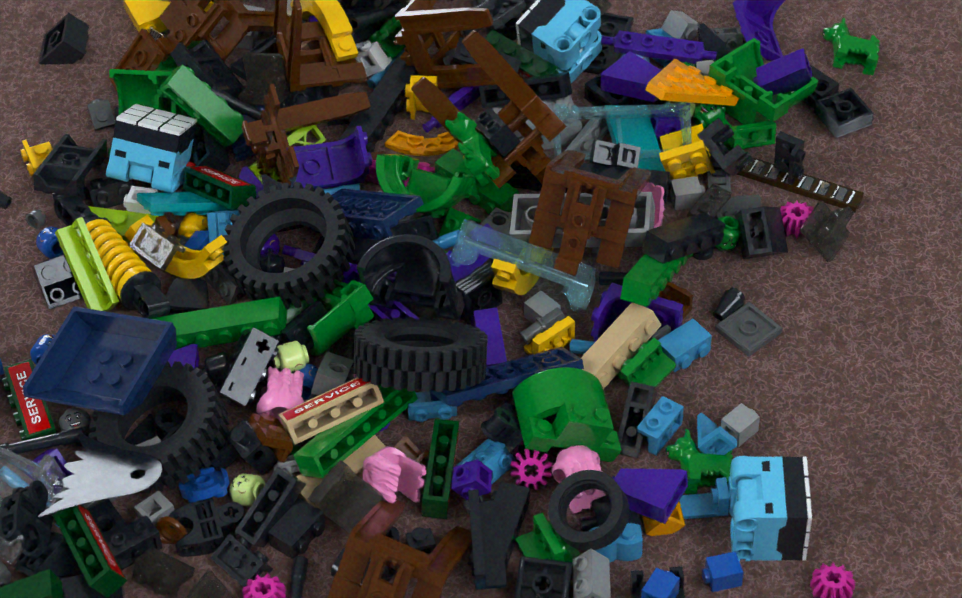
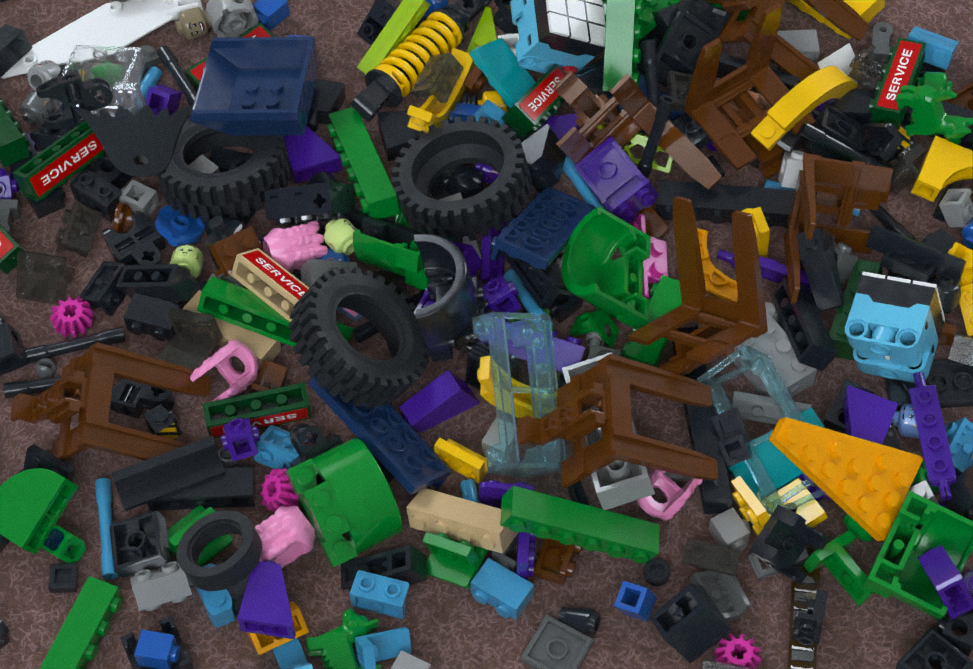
camera: 70 degrees right, 10 degrees up
(301, 100) = (661, 117): none -> black piece
(474, 147) = (661, 297): green animal -> none
(496, 131) = (697, 307): black brick -> none
(541, 325) = (469, 442): dark grey axle -> none
(683, 237) = (626, 537): black brick -> none
(729, 261) = (635, 601): none -> blue brick
(731, 233) = (675, 581): green head -> none

